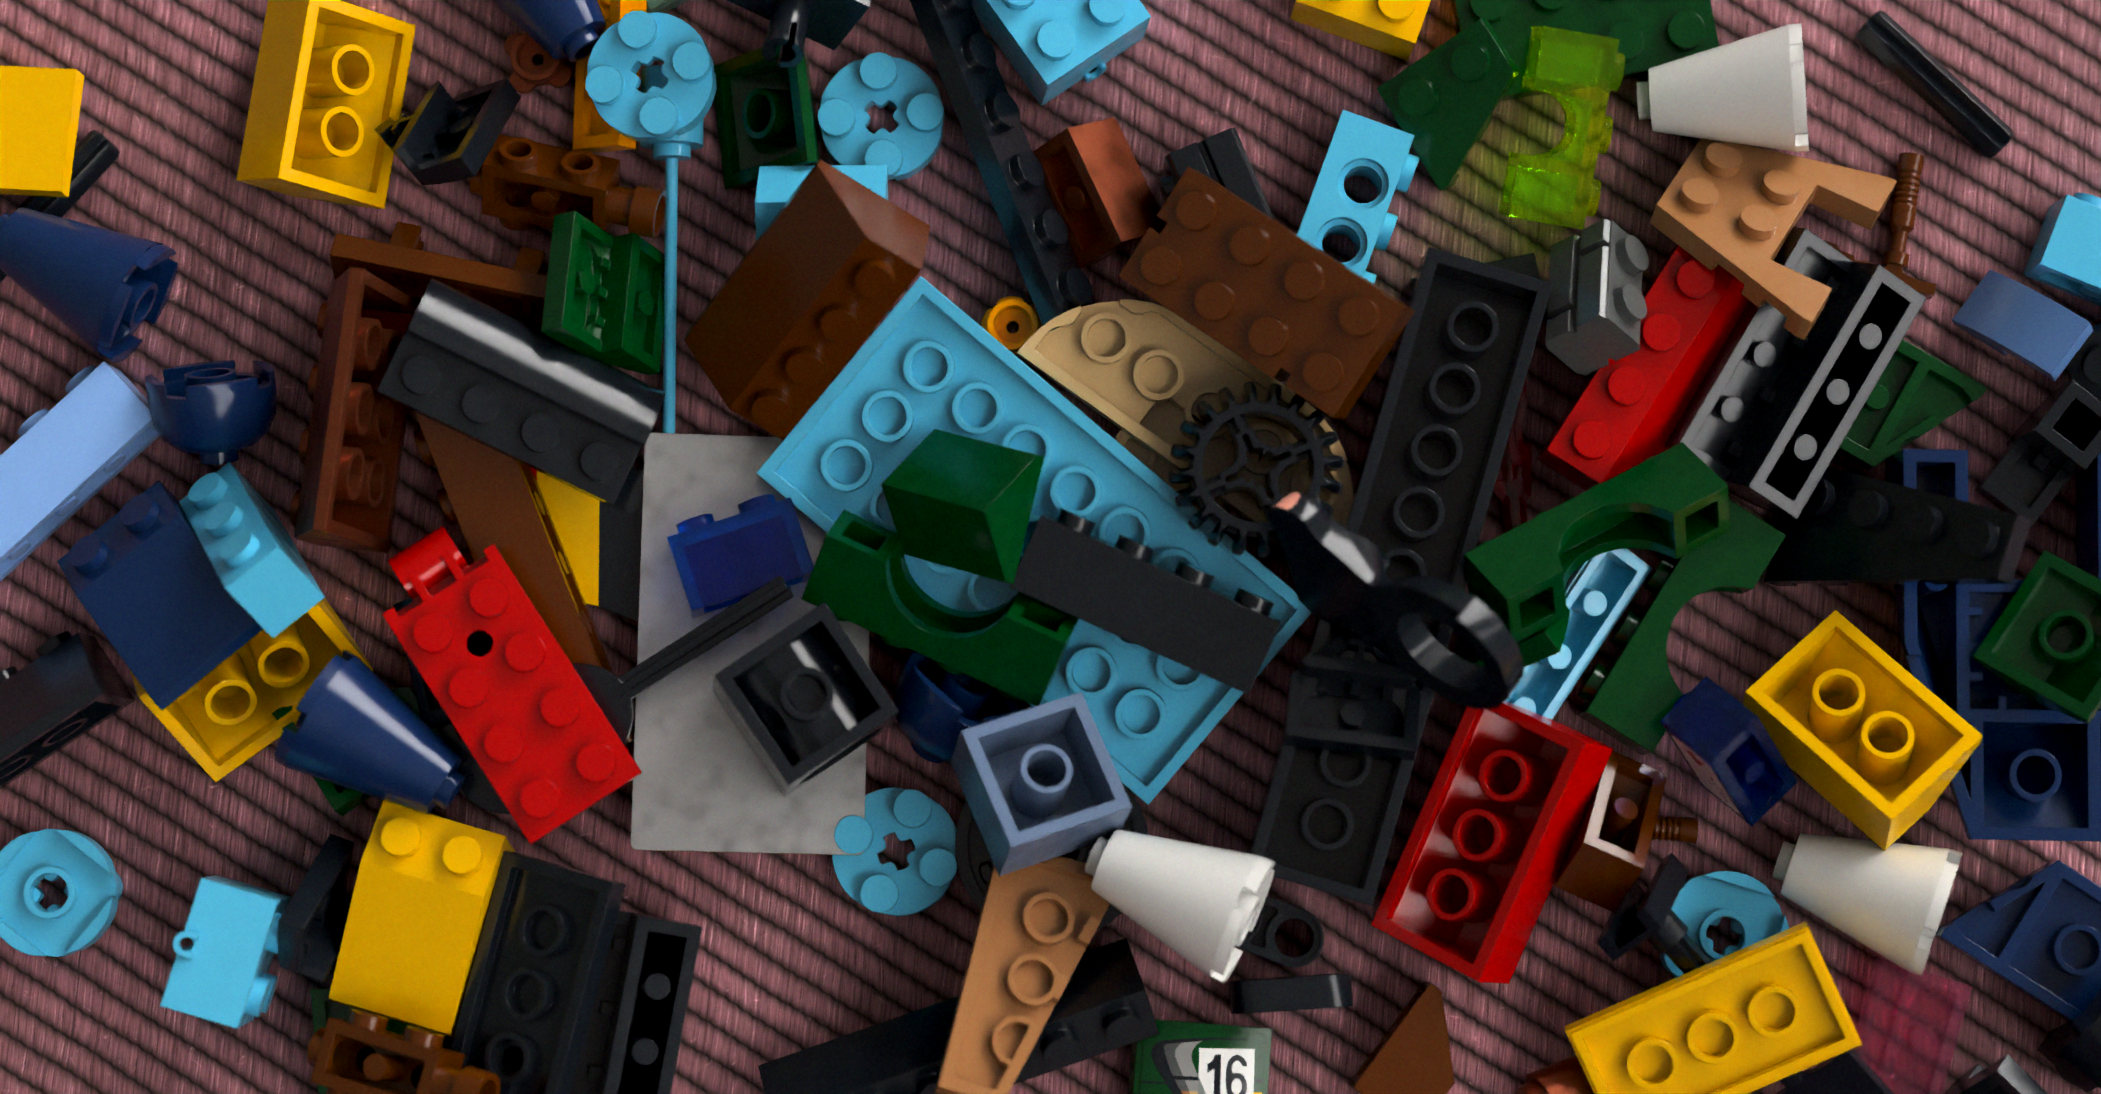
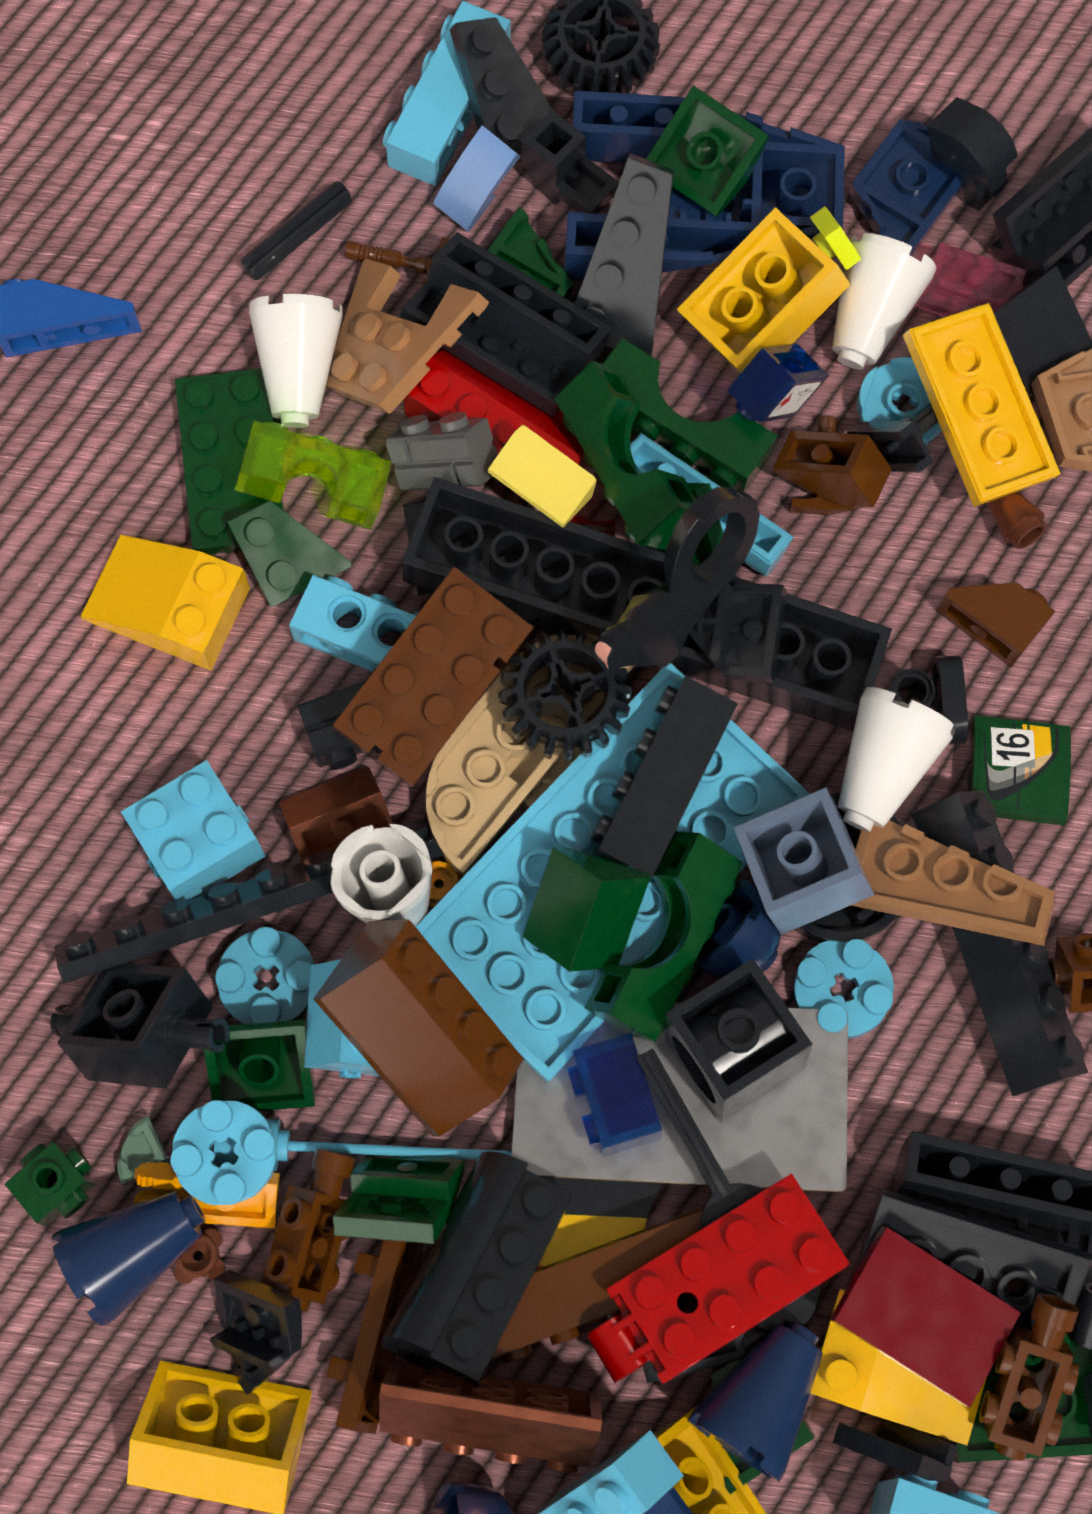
camera: 90 degrees left, 10 degrees down
(470, 937) = (925, 1316): none -> dark red tile
(991, 241) = (383, 874): none -> white cone
(1491, 839) = (842, 550): red slope -> none
(1557, 426) = (543, 476): none -> light yellow slope
(1944, 823) = (833, 239): none -> neon yellow plate

